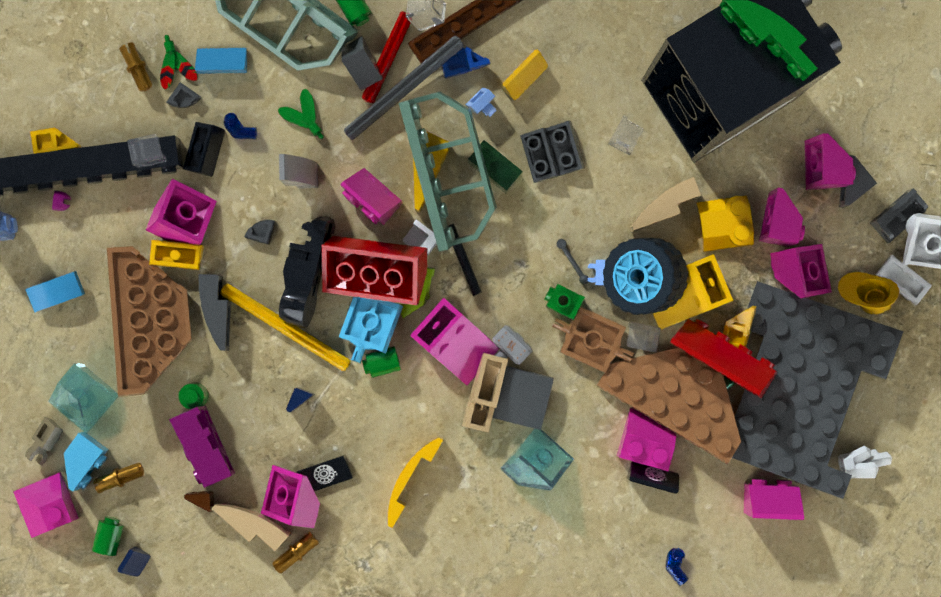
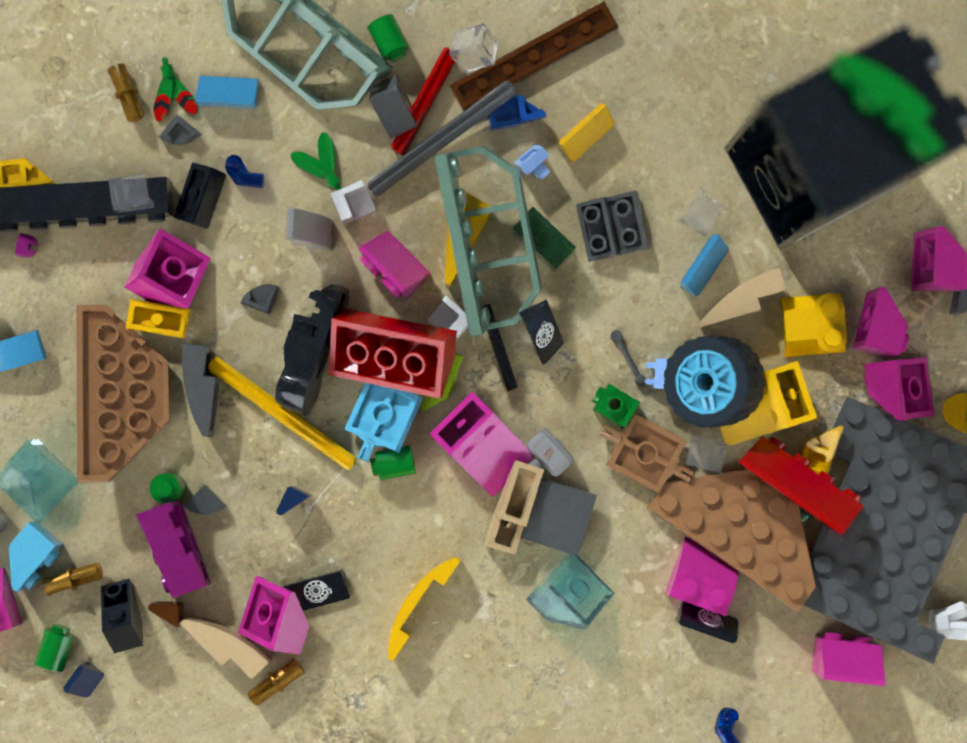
camera: 10 degrees right, 0 degrees up
(161, 506) = (121, 616): none -> black slope
(225, 406) = (205, 502): none -> dark grey tile
(333, 146) = (353, 202): none -> white panel
(499, 243) = (542, 330): none -> black slope
(631, 179) = (704, 265): none -> dark azure slope

